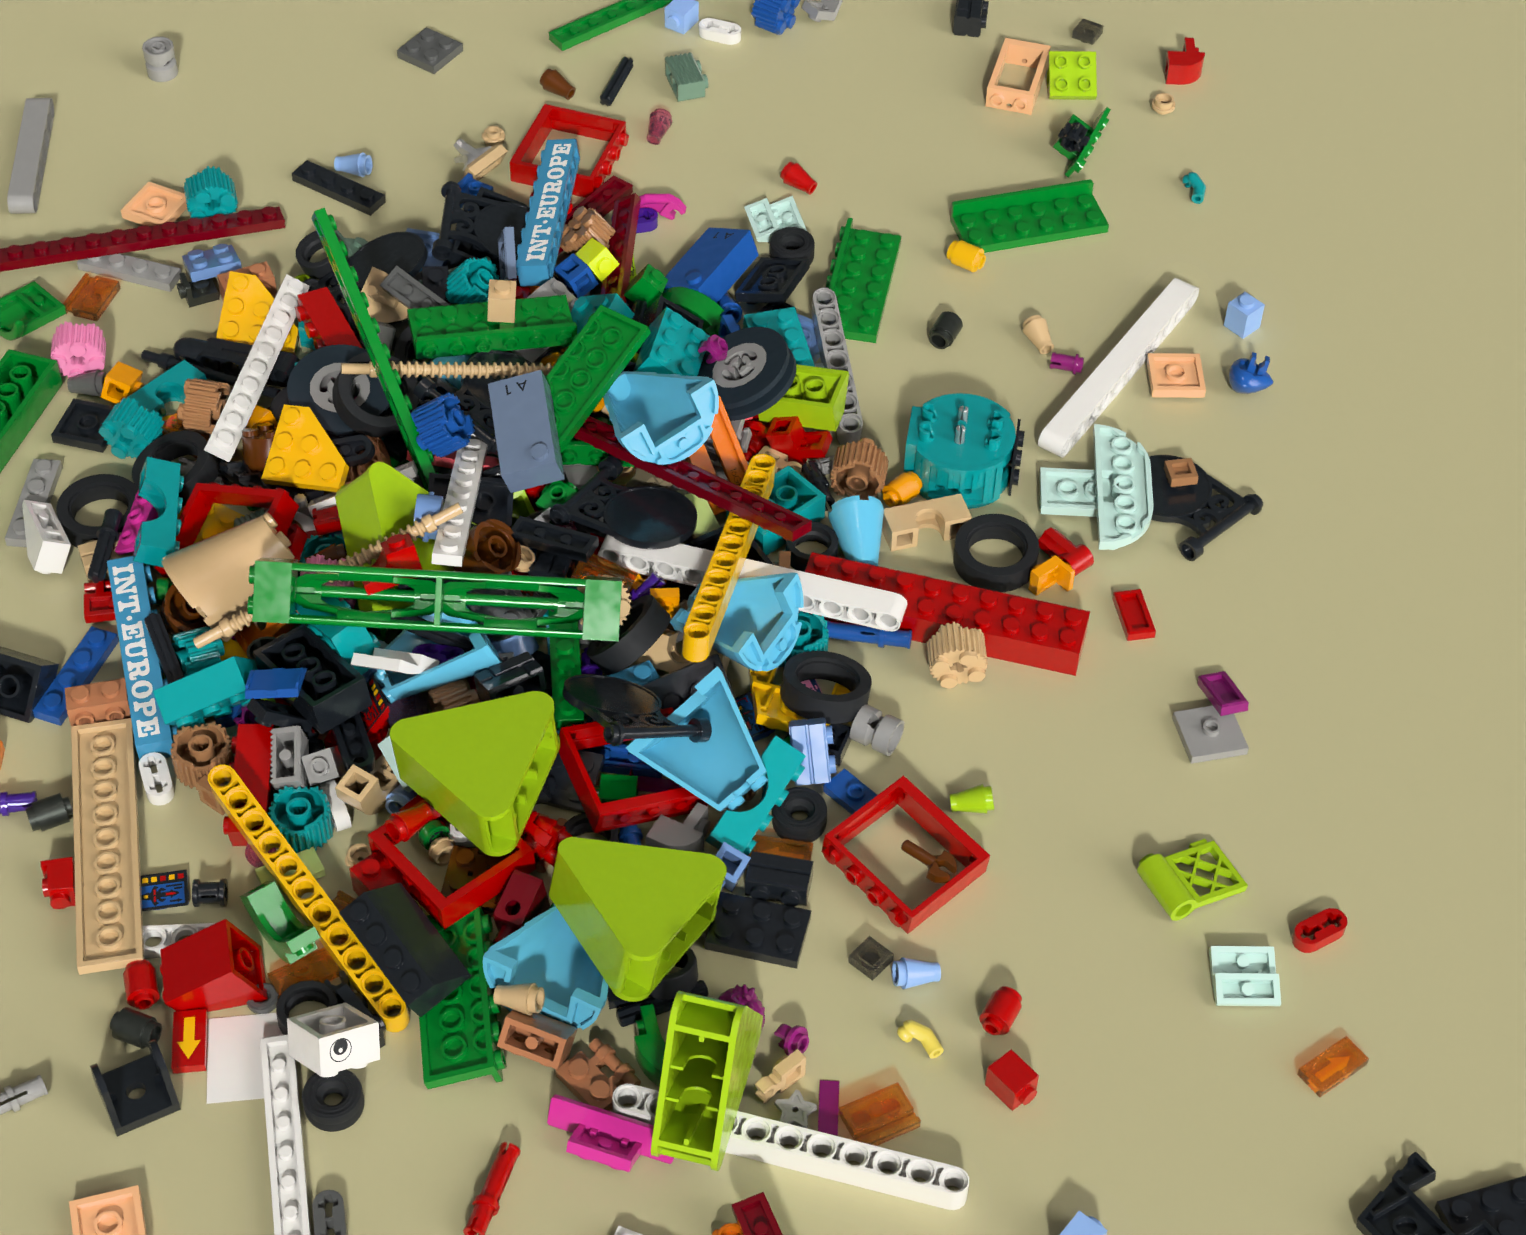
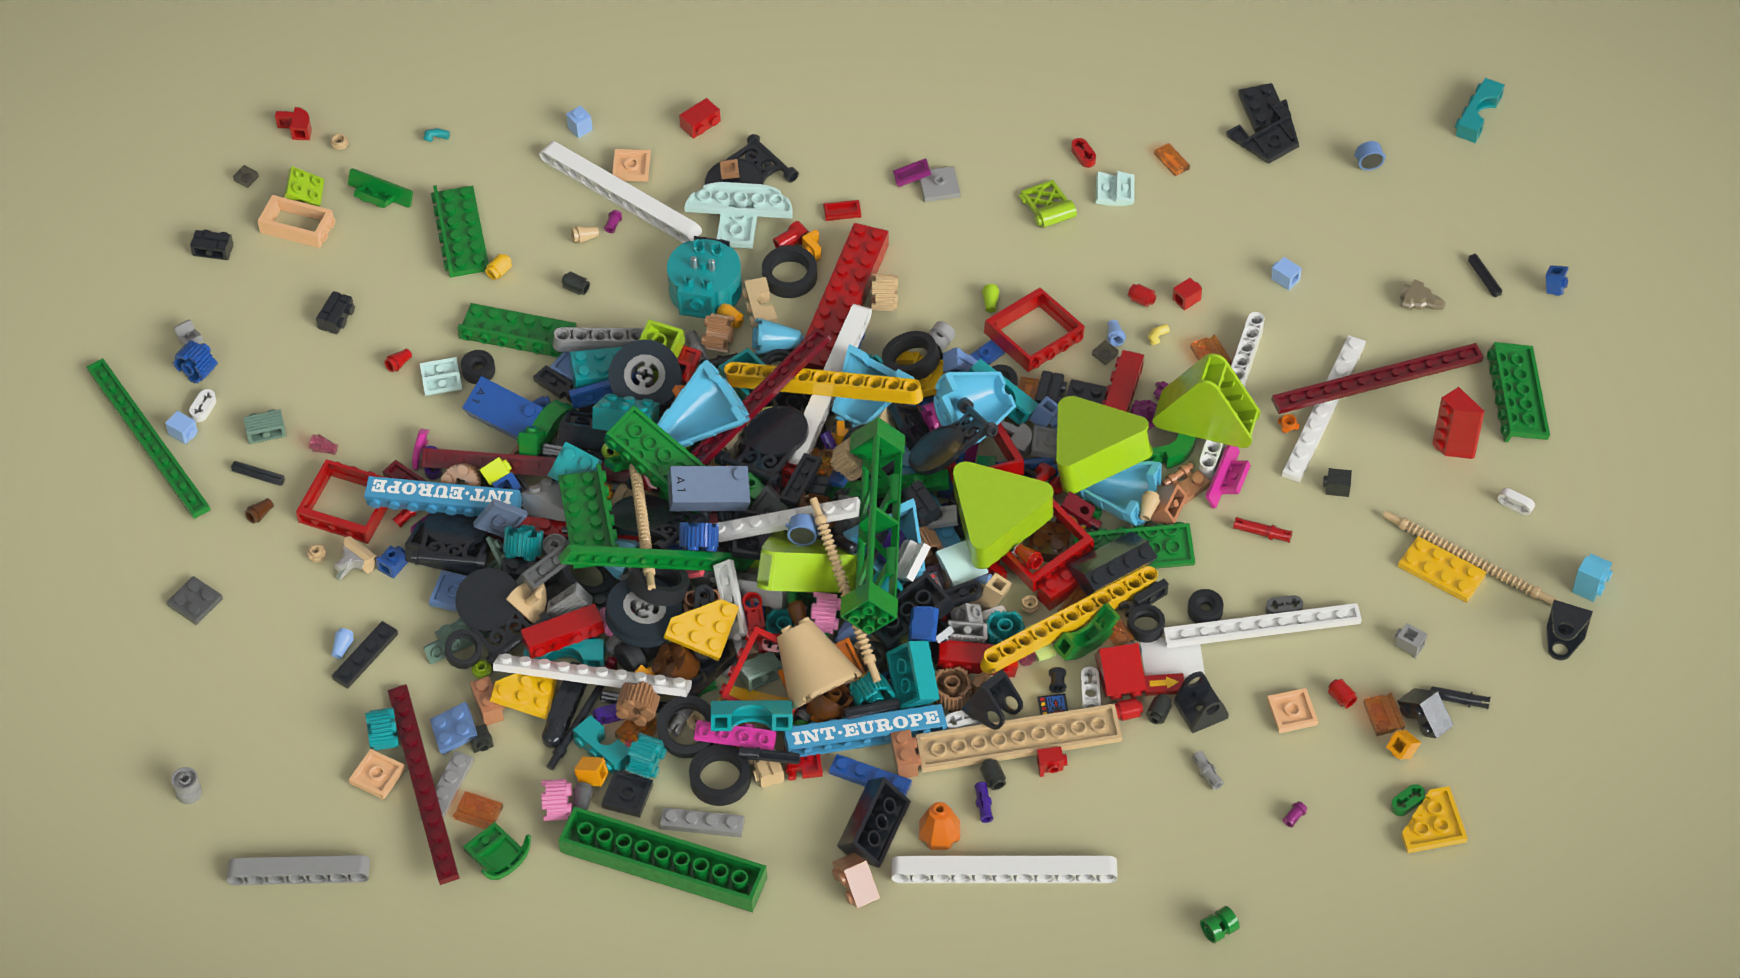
camera: 85 degrees left, 5 degrees up
(45, 537) = (750, 801): white slope -> none
(180, 785) = (992, 697): none -> black hose
(333, 1039) = (1176, 597): white brick -> none
(395, 553) = (849, 545): red arch -> none
(501, 301) = (580, 500): tan brick -> none
(717, 348) = (629, 388): magenta plate -> none
(772, 280) = (519, 374): black plate -> none
(799, 982) = (1124, 380): none -> red brick
(870, 119) = (335, 312): none -> black brick
(932, 862) = (1047, 312): reddish brown bar -> none
(1073, 137) = (388, 188): black gear -> none
(1248, 376) = (640, 126): blue piece -> none
(1282, 441) = (700, 118): none -> red brick

